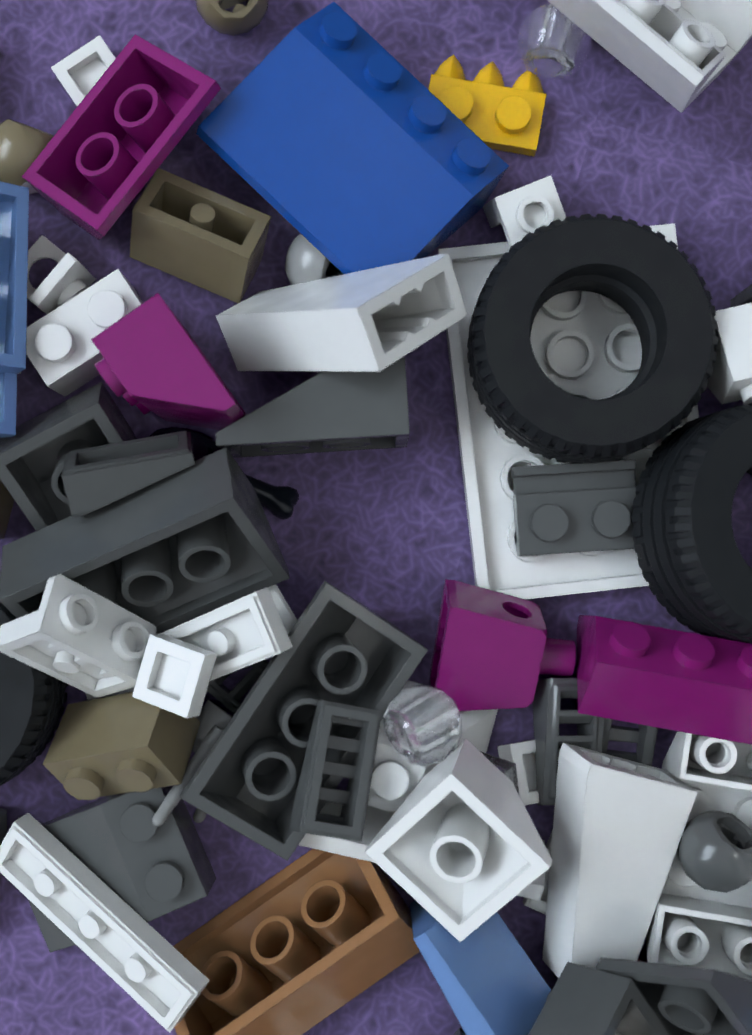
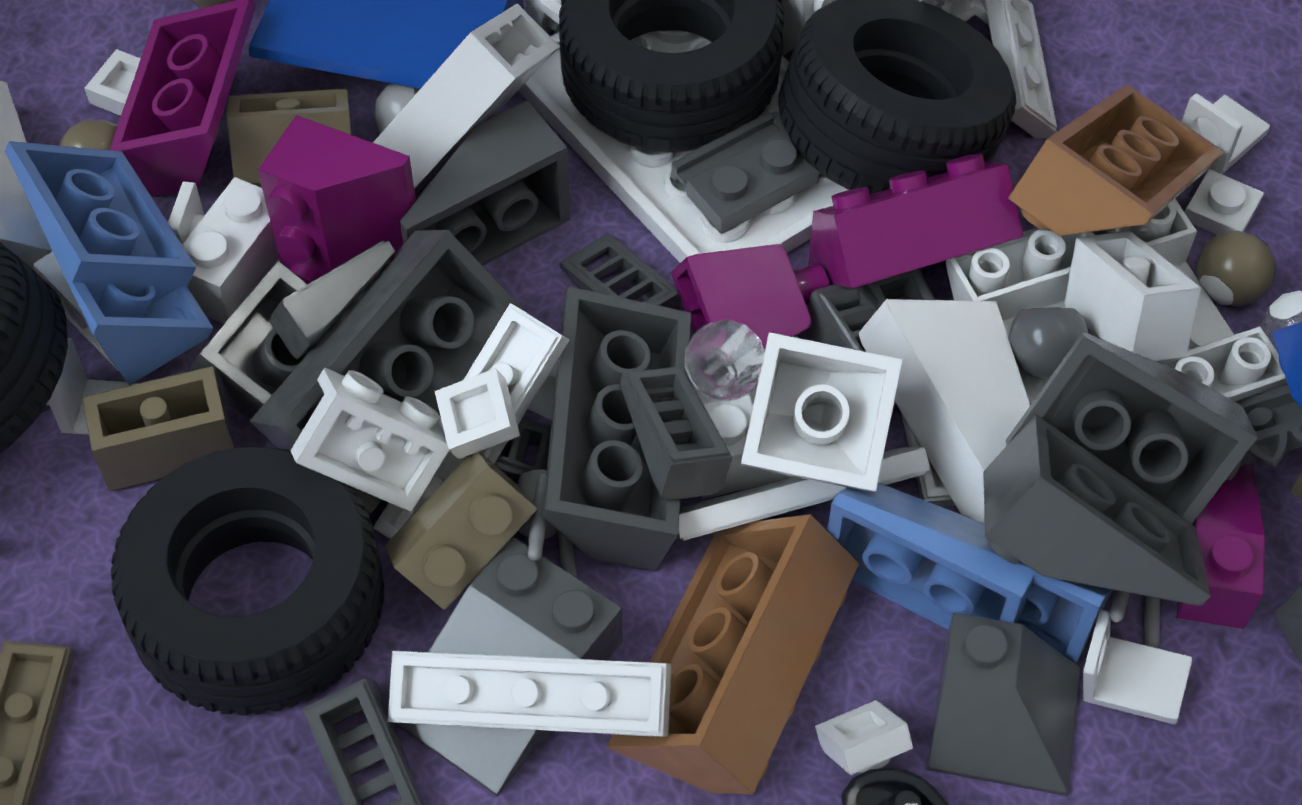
camera: 30 degrees left, 30 degrees down
(412, 597) = (634, 270): none -> dark grey slope

